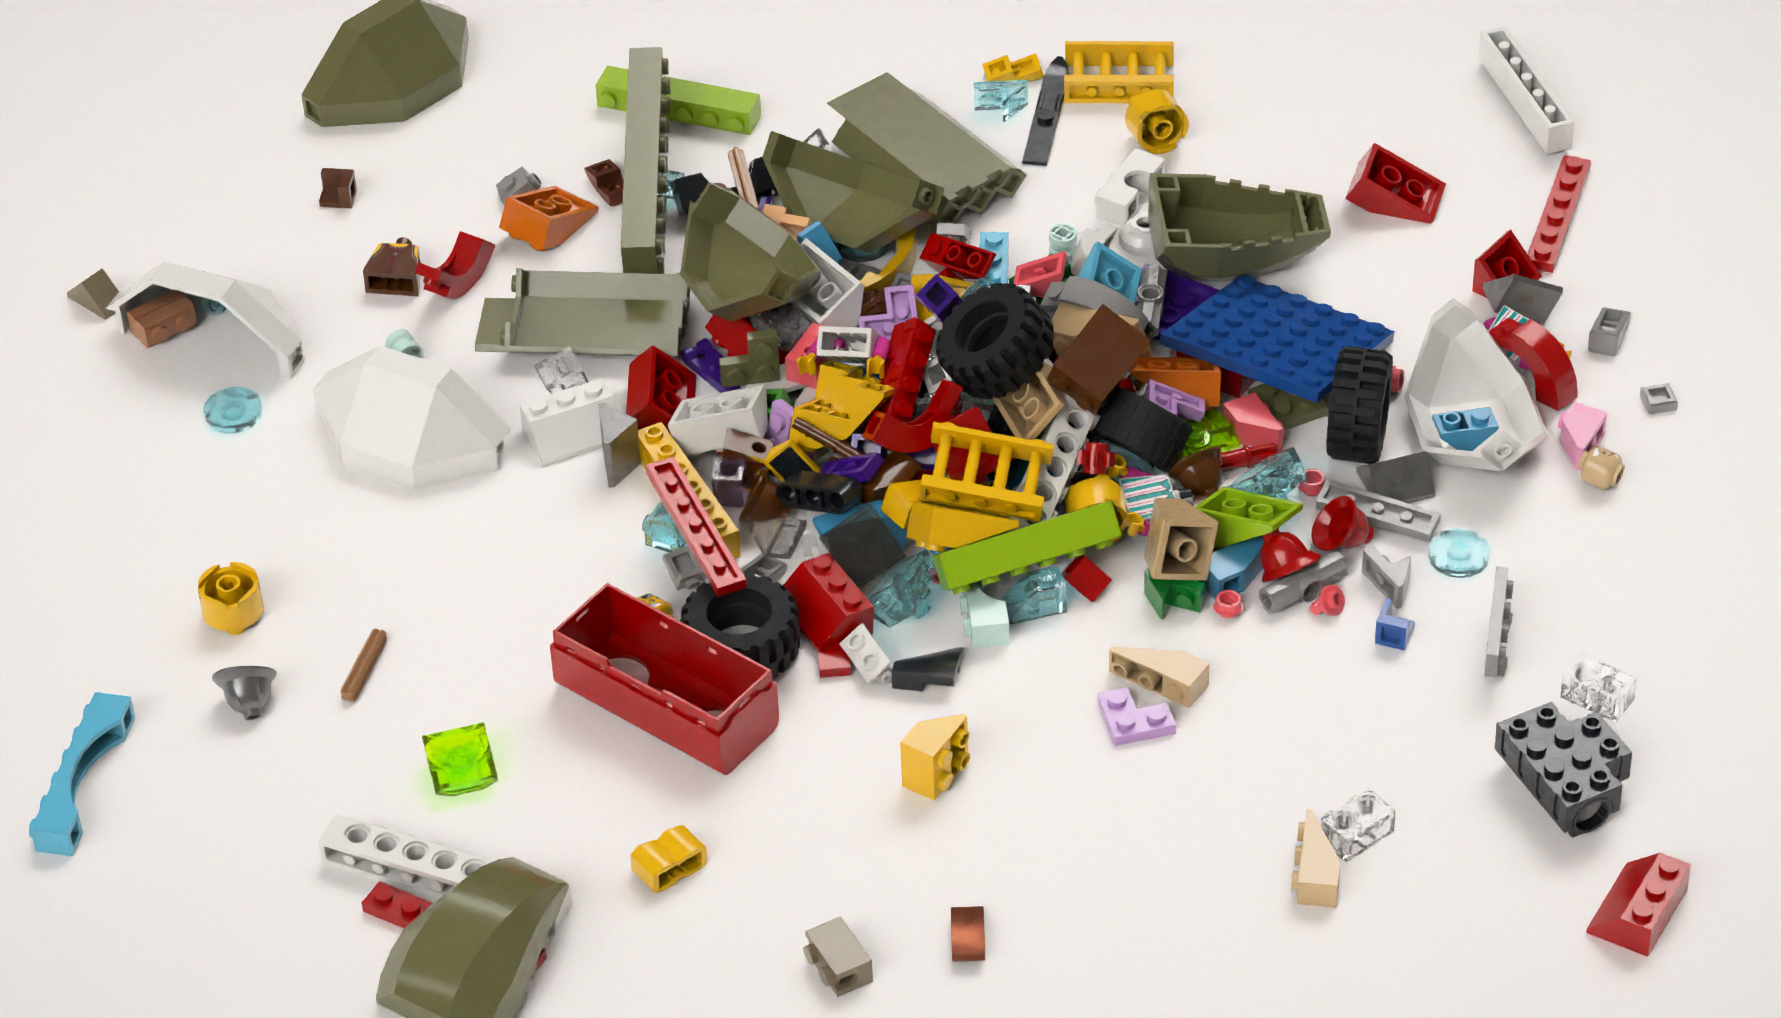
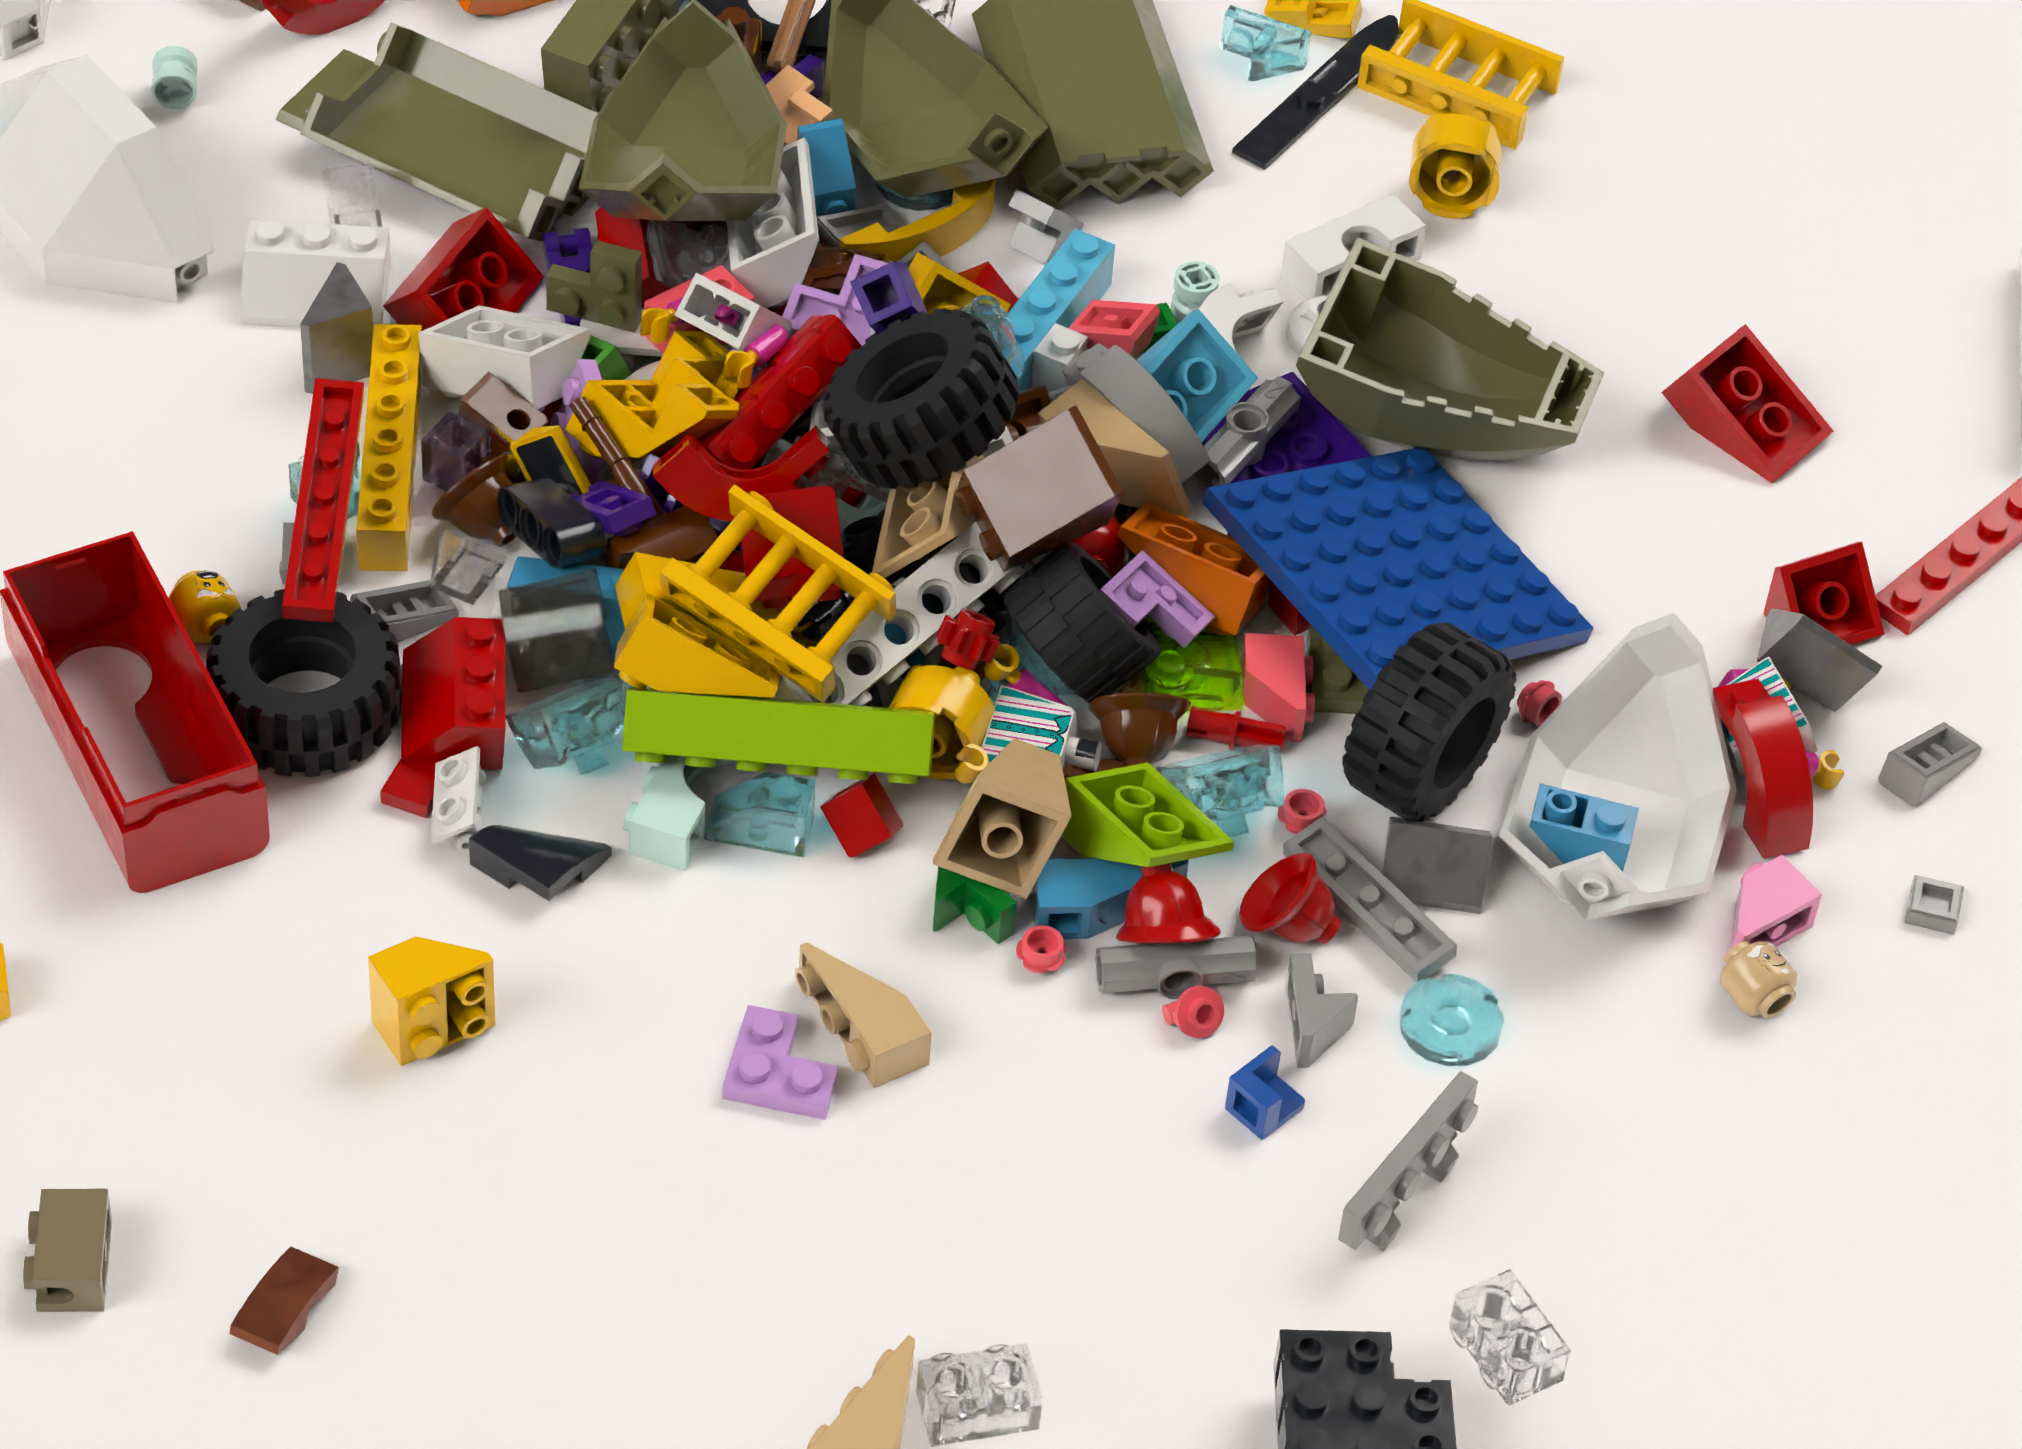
camera: 20 degrees right, 5 degrees up
(959, 257) = (1010, 250): red slope -> none

